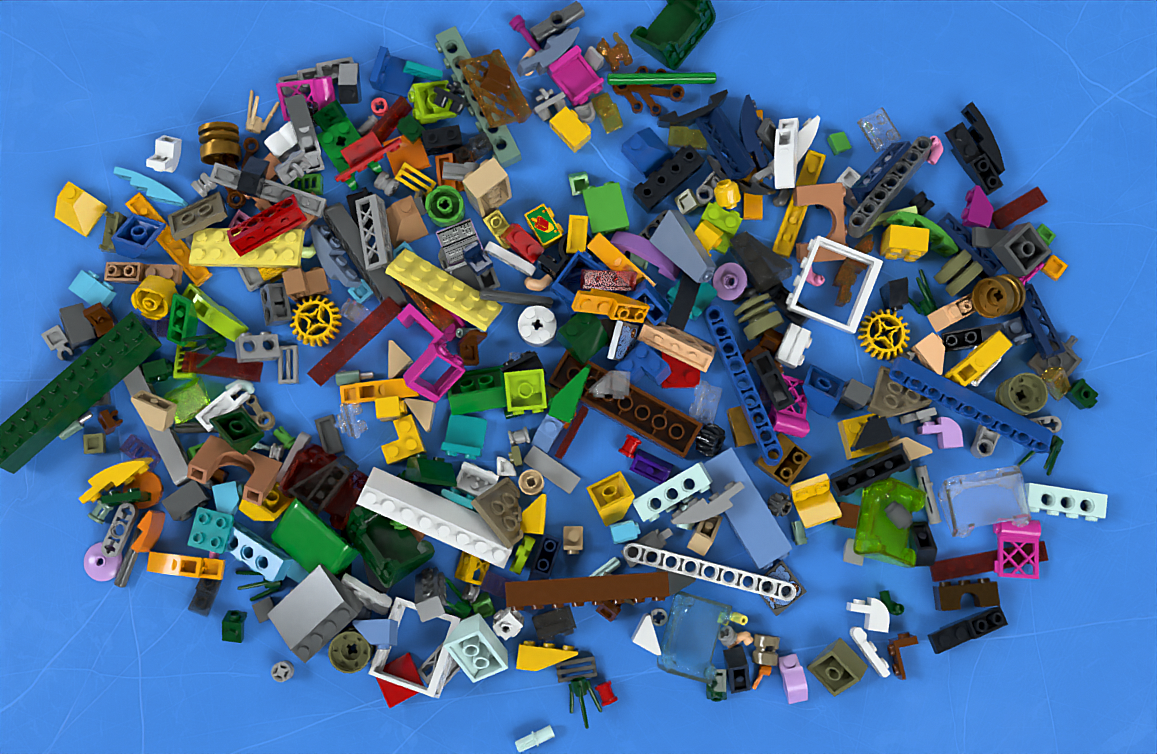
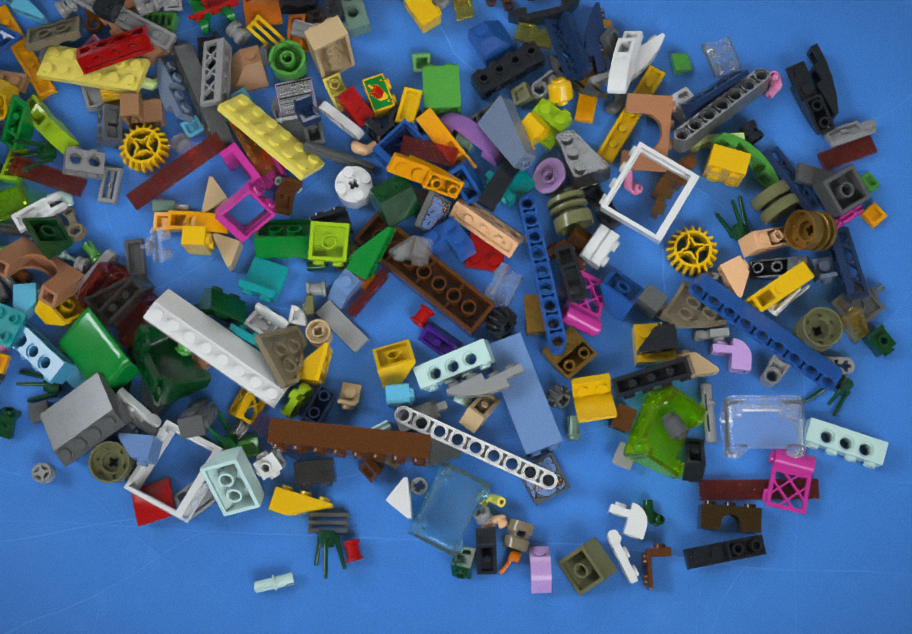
camera: 15 degrees right, 5 degrees down
(407, 445) = (209, 274): yellow brick -> none
(895, 294) = (709, 213): black slope -> none
(978, 209) = (806, 147): magenta slope -> none
(1017, 187) = (849, 132): none -> light grey hinge

